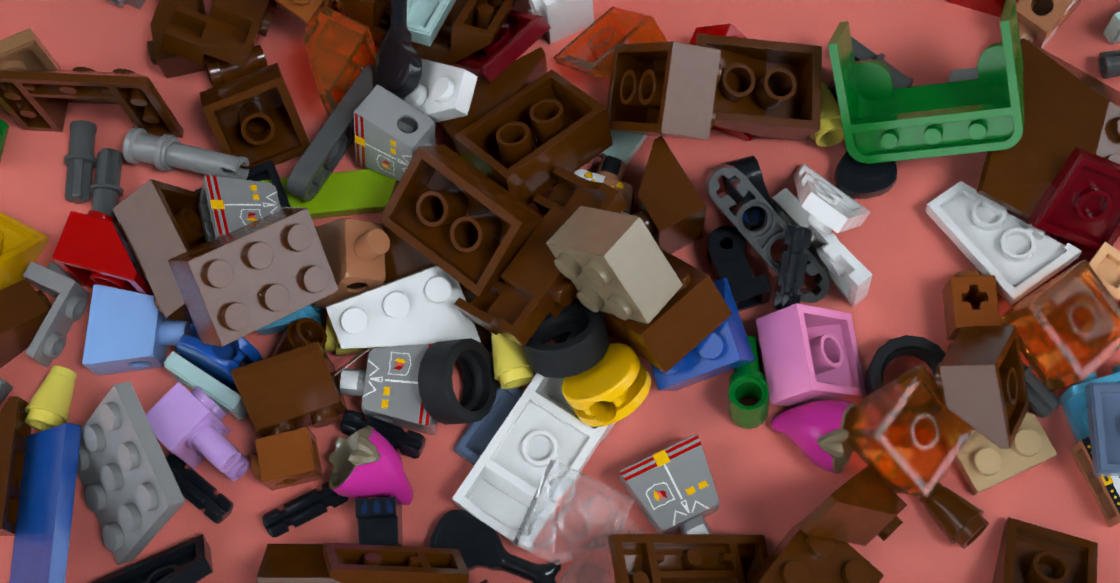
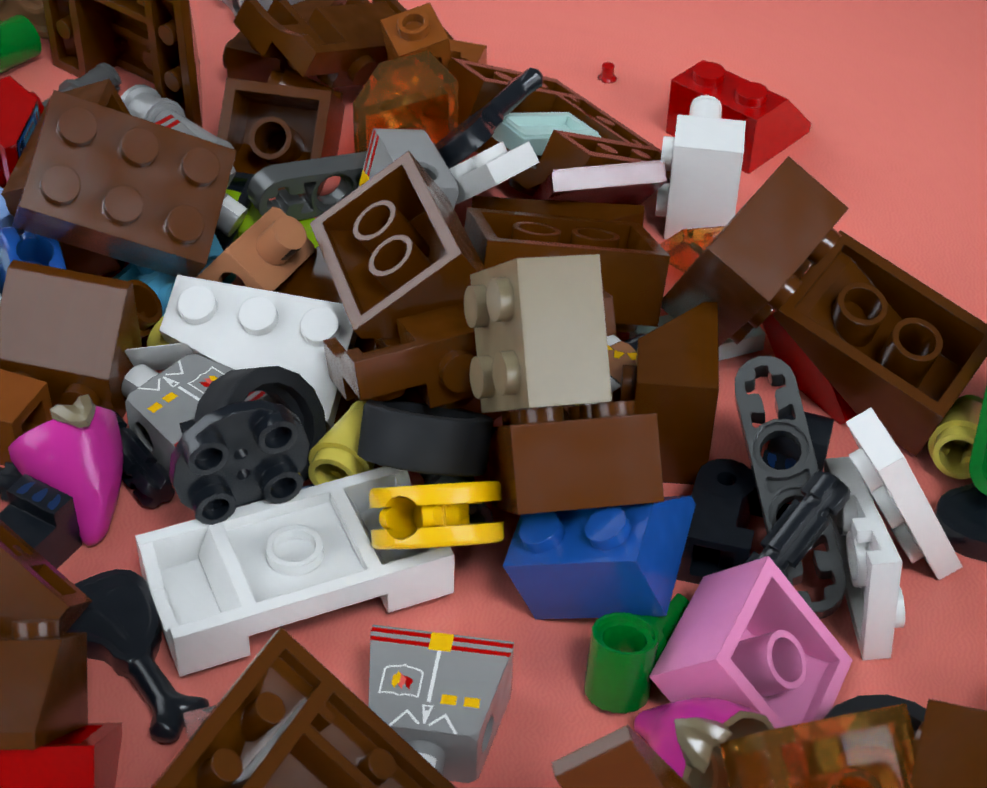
camera: 25 degrees right, 30 degrees down
(495, 414) = (238, 459): none -> black plate
(570, 515) = (234, 611): clear plate -> none

